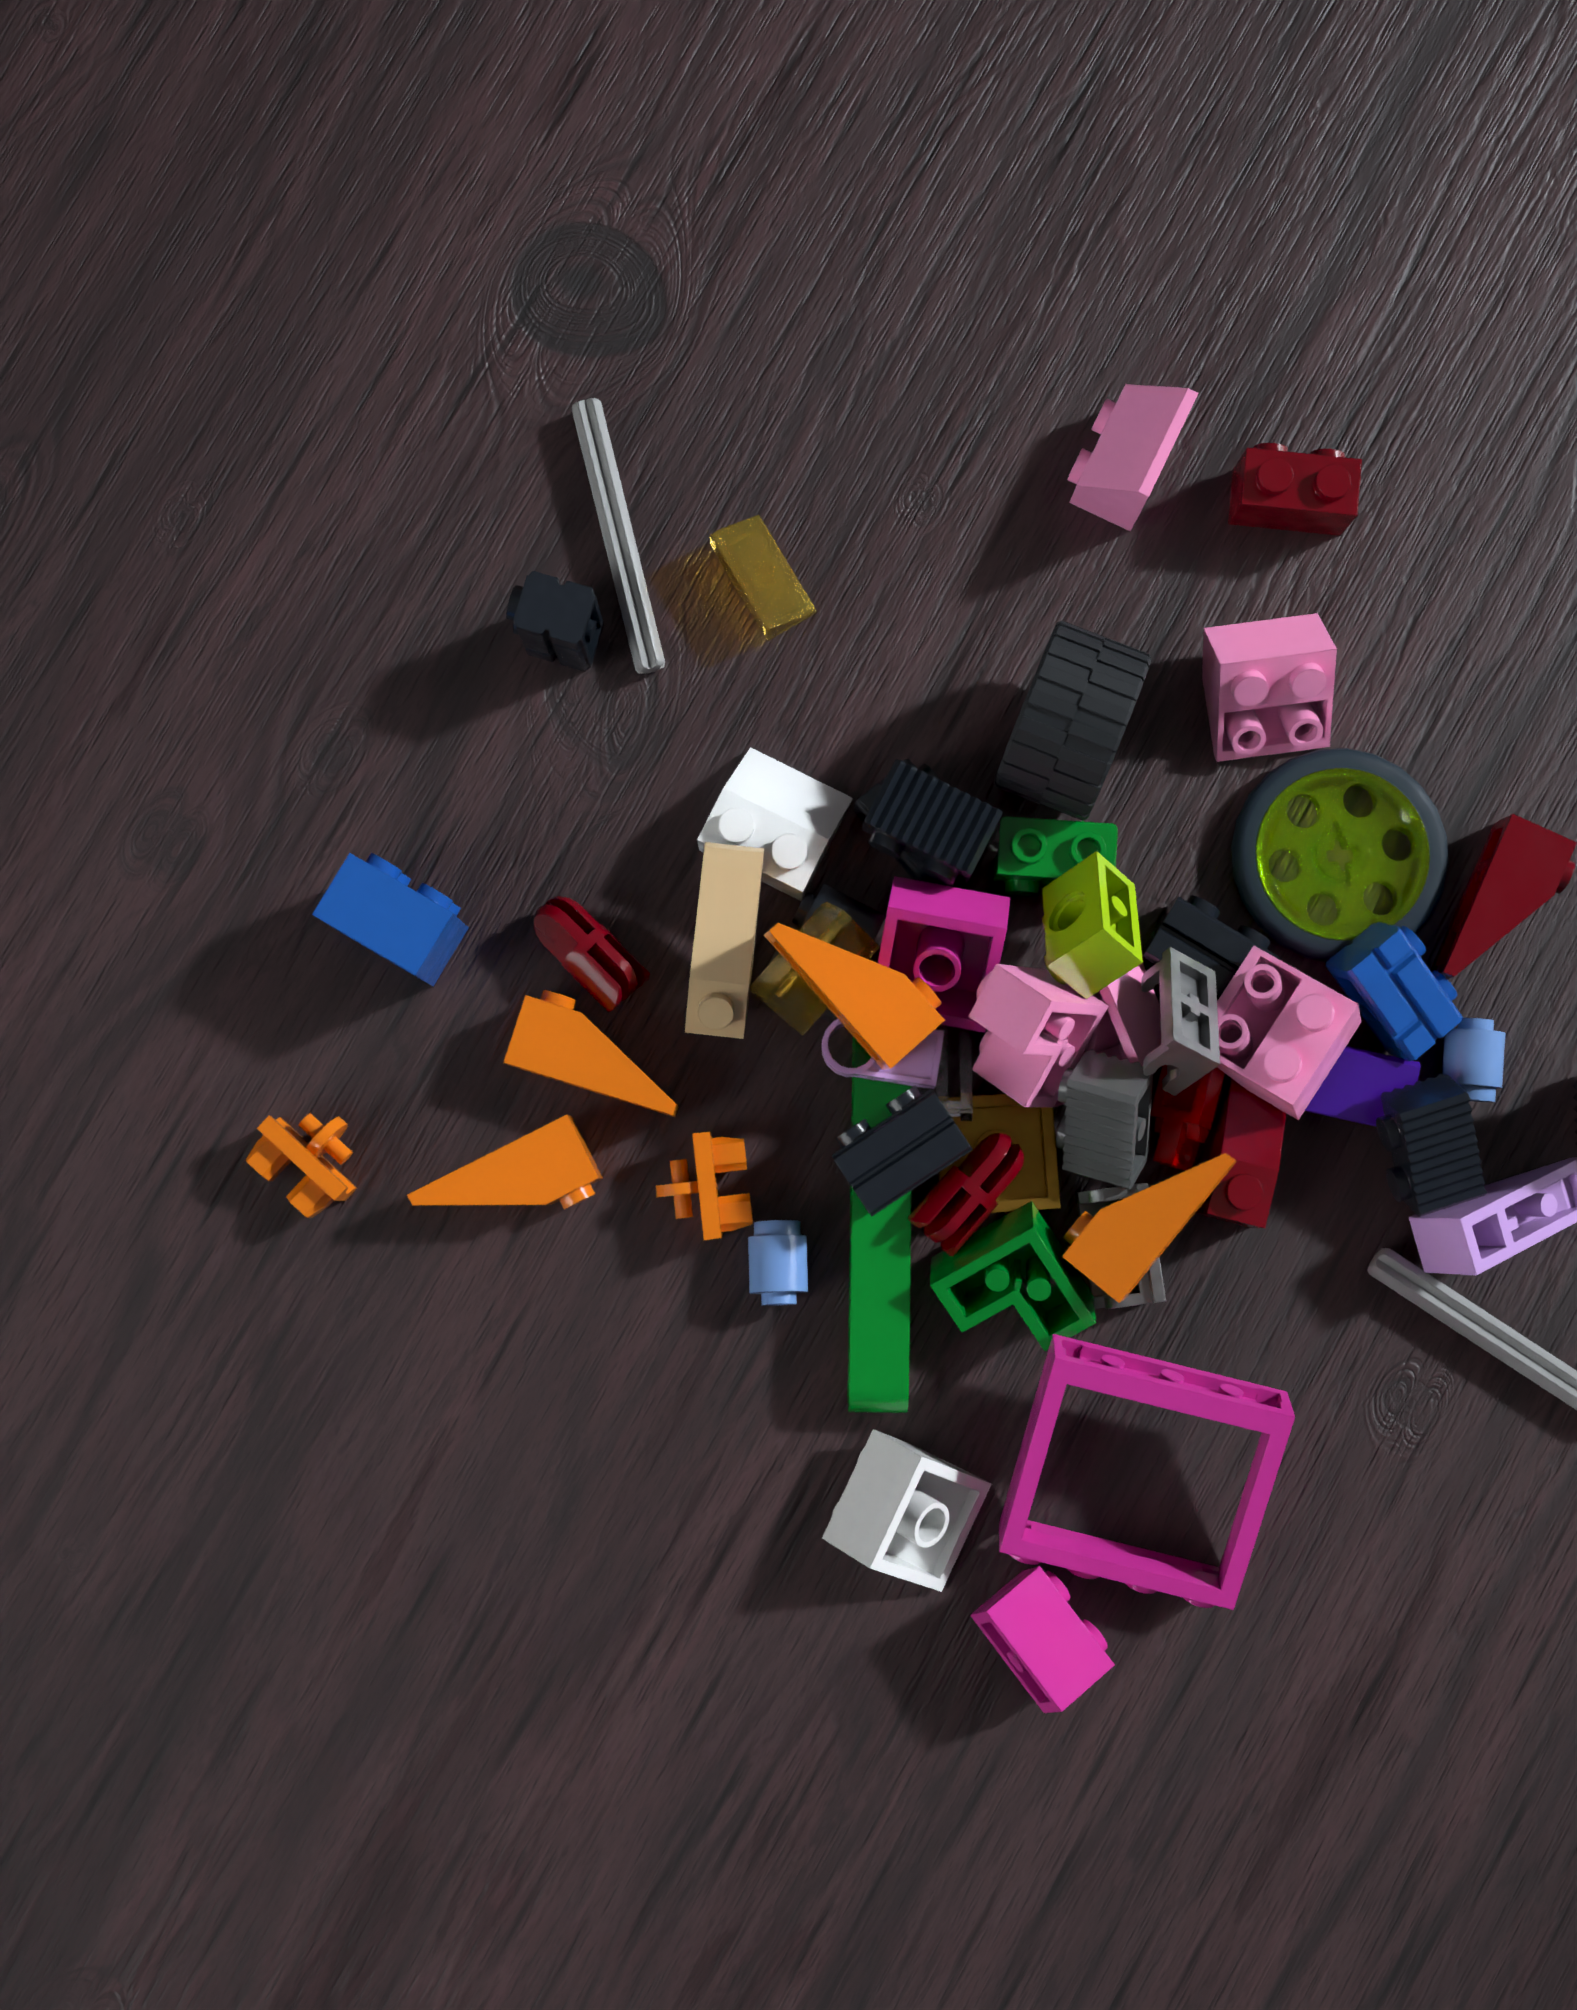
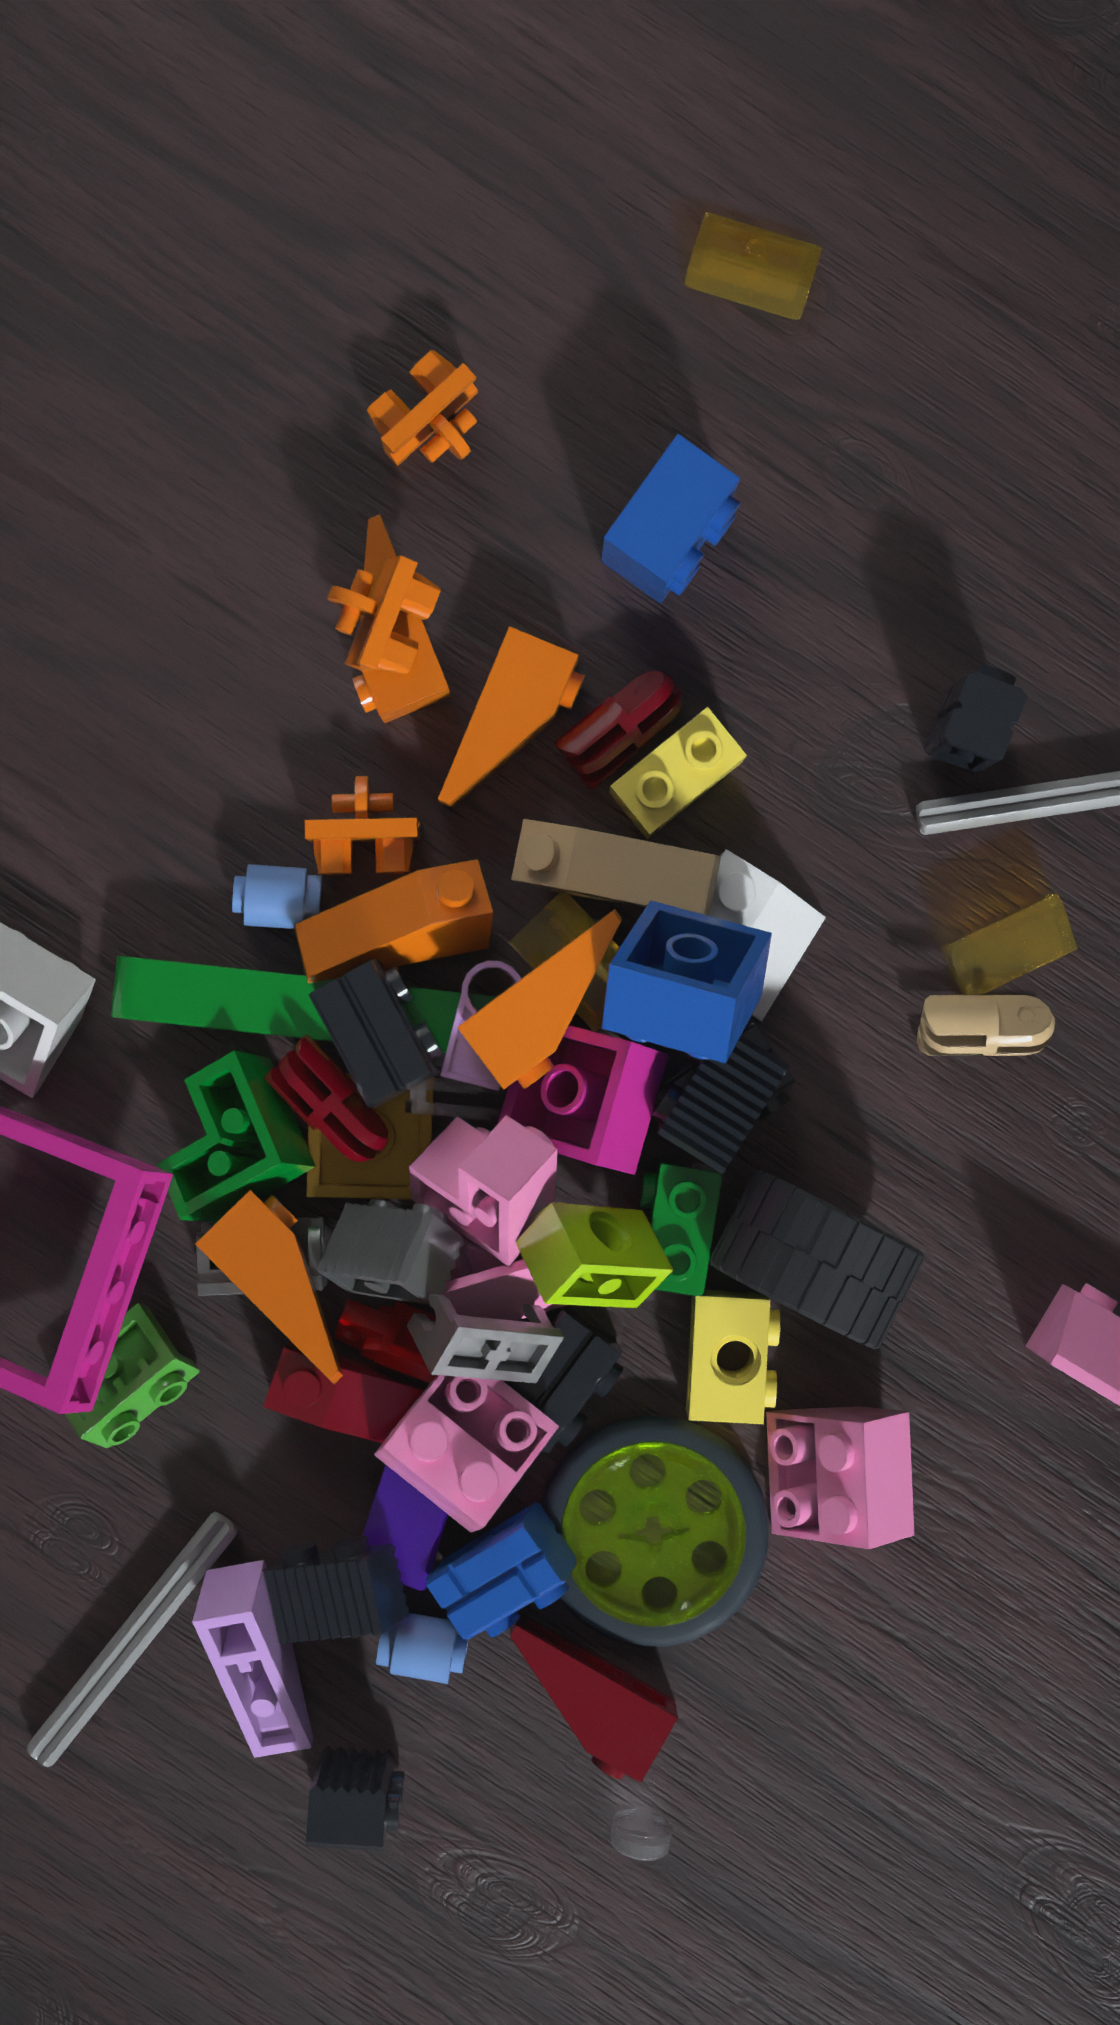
camera: 100 degrees right, 5 degrees up
(144, 868) = (752, 266): none -> clear yellow slope
(500, 1188) = (395, 590): none -> orange hips
(629, 894) = (677, 773): none -> light yellow brick
(794, 1141) = (400, 923): none -> orange slope
(827, 858) = (686, 981): none -> blue brick
(838, 591) = (984, 1025): none -> tan arm
(1204, 789) = (721, 1393): none -> light yellow brick
(1246, 1349) = (139, 1378): none -> bright green bracket
(1295, 490) = (1052, 1526): dark red brick -> none

